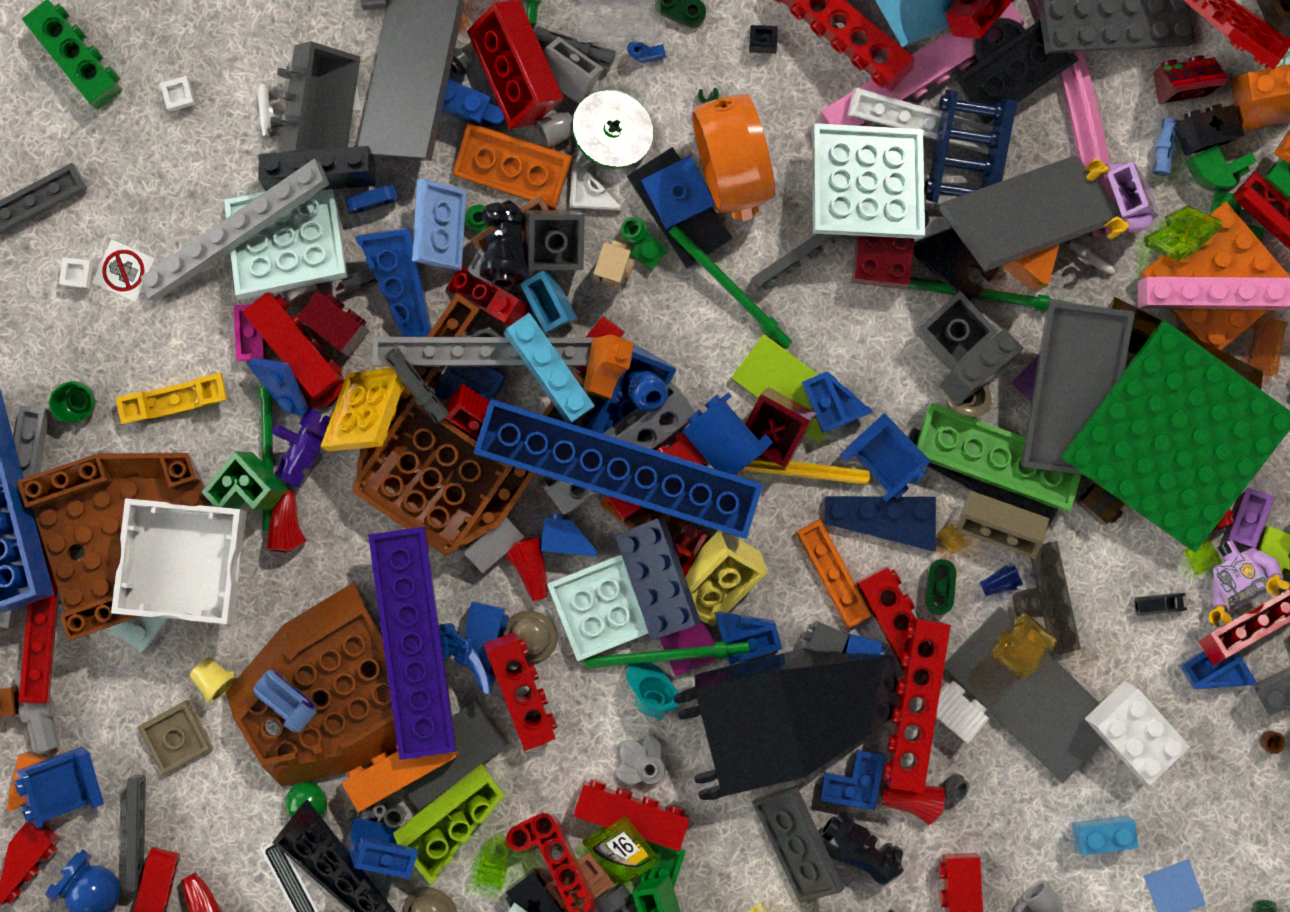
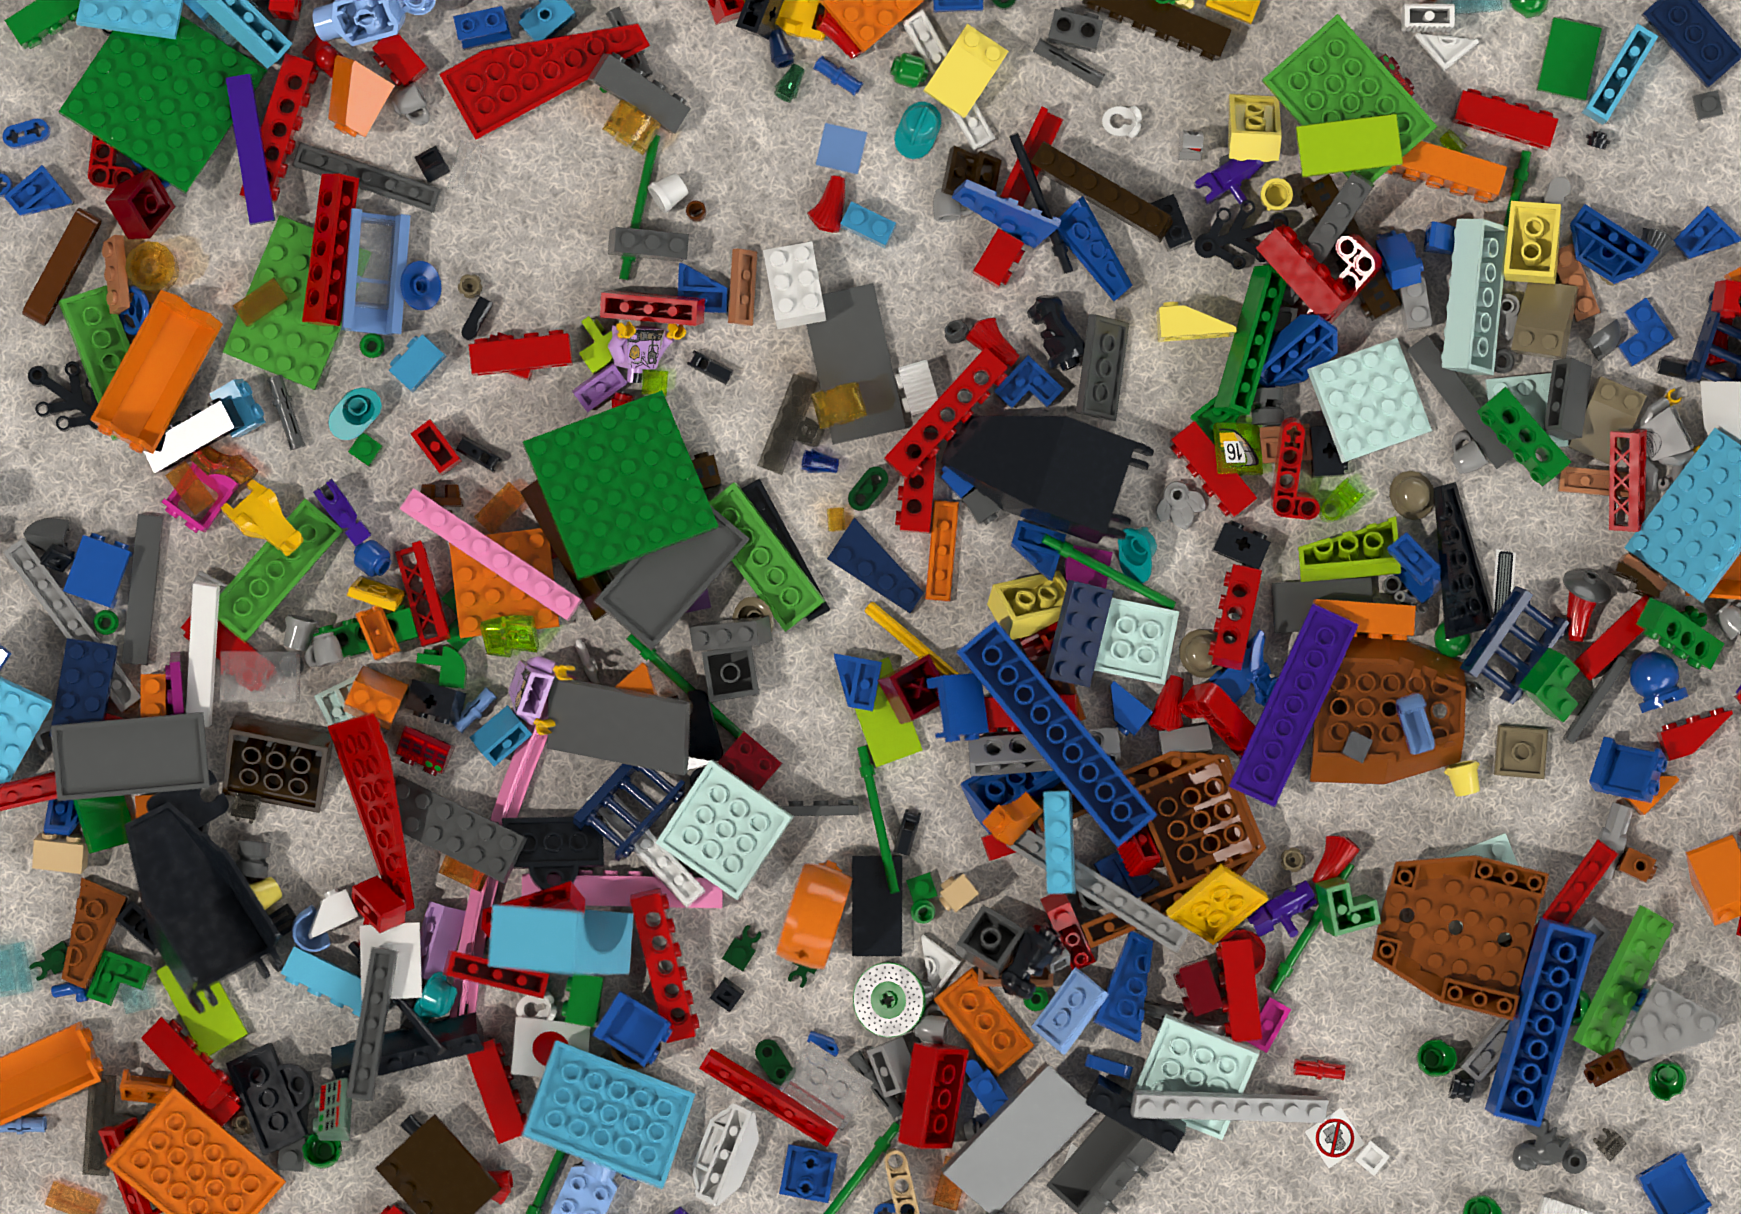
camera: 145 degrees left, 0 degrees up
(32, 389) = (1461, 1088): none -> black wheel
(171, 399) = (1359, 1011): yellow slope -> none
(175, 322) = (1319, 1069): none -> red pin
(179, 561) = (1427, 877): white tile -> none
(186, 821) = (1548, 682): none -> green brick
(252, 766) = (1474, 692): none -> dark grey plate
(265, 110) = (1146, 1189): white piece -> none
(266, 835) = (1492, 638): none -> dark blue fence
(281, 384) = (1268, 967): blue wing -> none
(318, 494) = (1292, 866): none -> dark tan plate
(328, 642) = (1356, 746): none -> black slope
(412, 380) = (1165, 886): dark grey pin -> none
(475, 590) = (1221, 714): none -> red beam
(544, 755) = (1251, 556): none -> black brick
(548, 301) = (1024, 897): dark azure brick -> none
(647, 391) = (995, 778): blue head -> none
(678, 192) = (871, 916): blue plate -> none
(694, 288) = (906, 837): none -> black bar
(776, 86) = (739, 951): none -> dark green plate
(888, 456) = (844, 612): blue panel -> none
(1002, 524) = (792, 505): dark tan brick -> none
(1128, 135) = (500, 735): none -> dark azure brick
(1150, 828) = (829, 210): none -> red piece
(1182, 699) = (742, 287): none -> nougat plate

